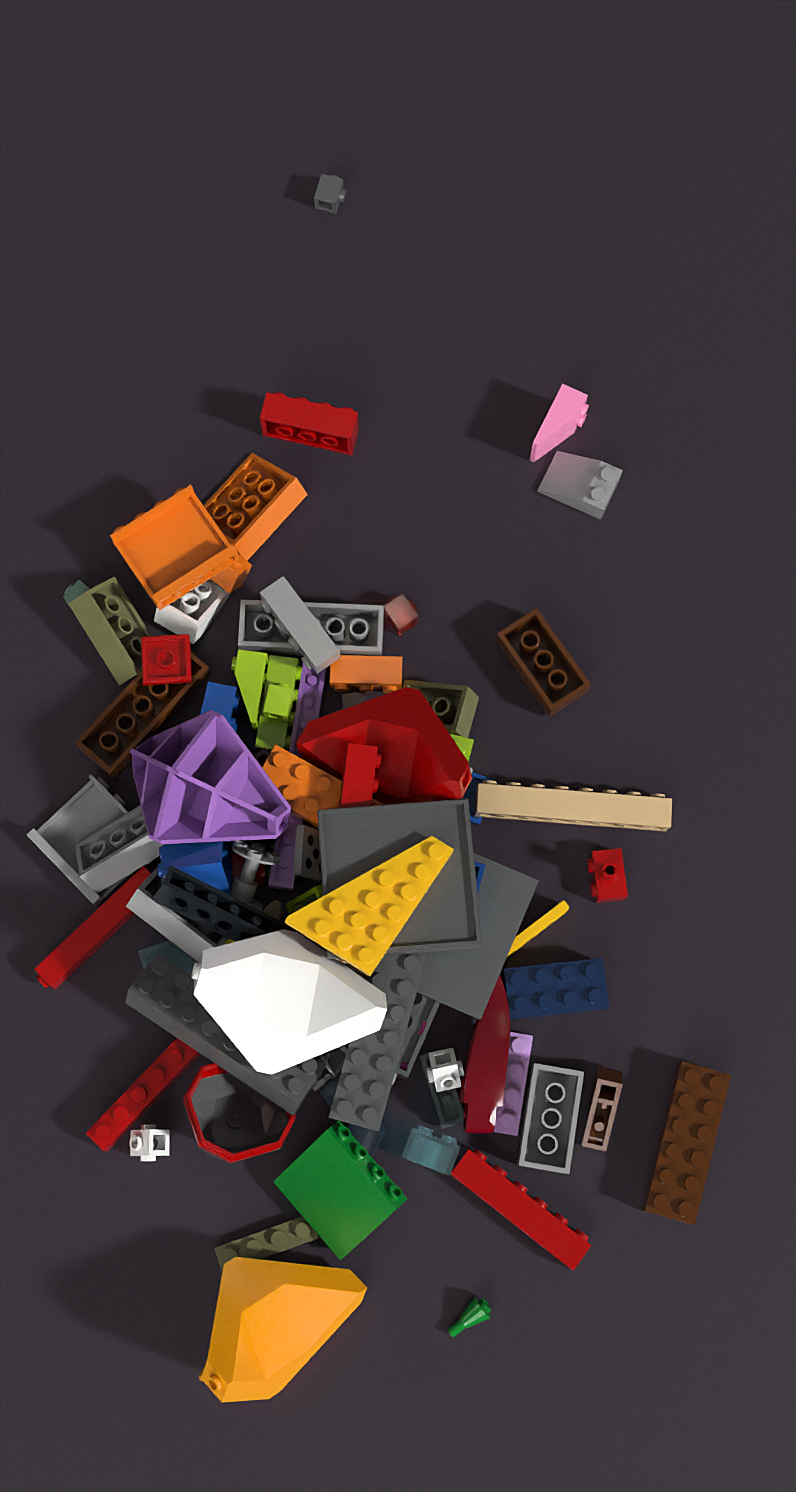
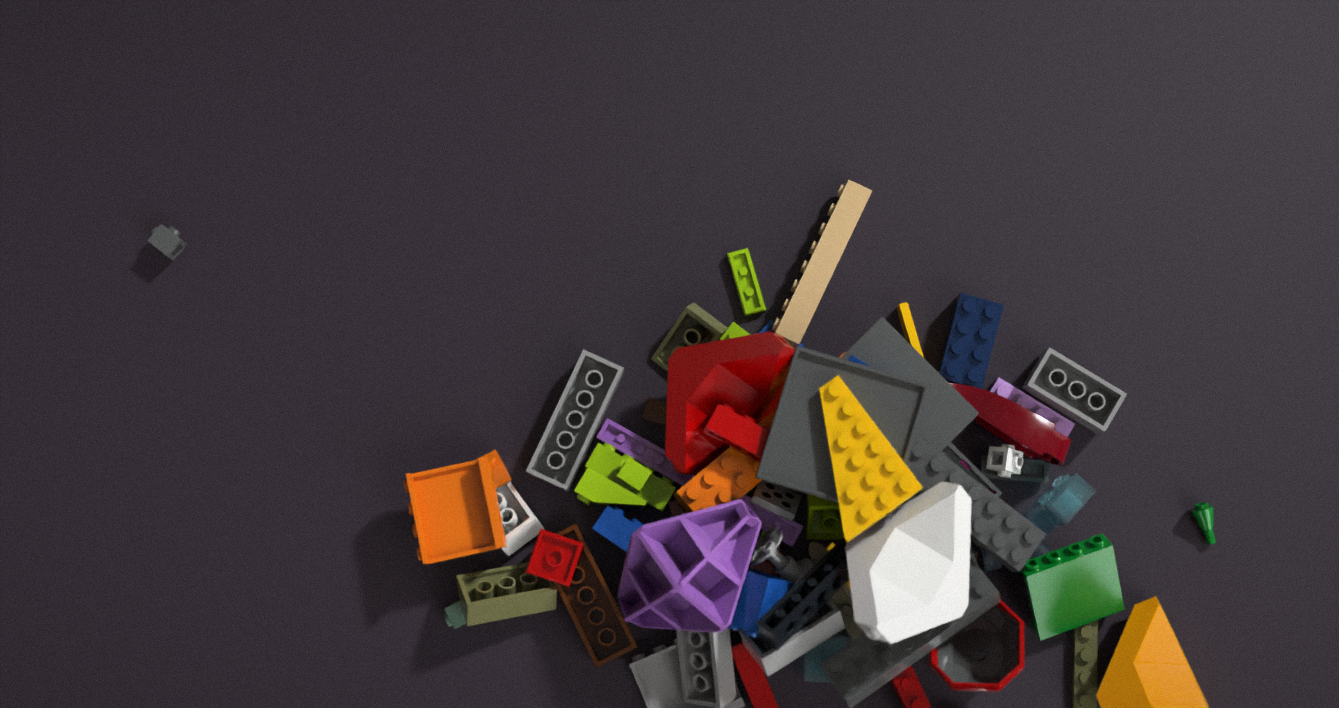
camera: 70 degrees left, 5 degrees up
(254, 503) = (436, 426): orange slope -> none
(299, 624) = (573, 428): light grey brick -> none
(309, 423) = (384, 346): red brick -> none
(366, 673) = (633, 389): orange brick -> none
(401, 613) = (591, 337): clear red brick -> none
(520, 1209) = (1137, 444): red brick -> none
(522, 742) = (746, 282): none -> lime tile
(543, 662) = (687, 235): reddish brown brick -> none
(561, 421) = (472, 123): bright pink slope -> none
(580, 482) = (537, 136): light grey slope -> none
(602, 1108) = (1078, 344): reddish brown slope -> none
(608, 875) = (890, 259): red brick -> none
(686, 1143) = (1133, 290): reddish brown brick -> none

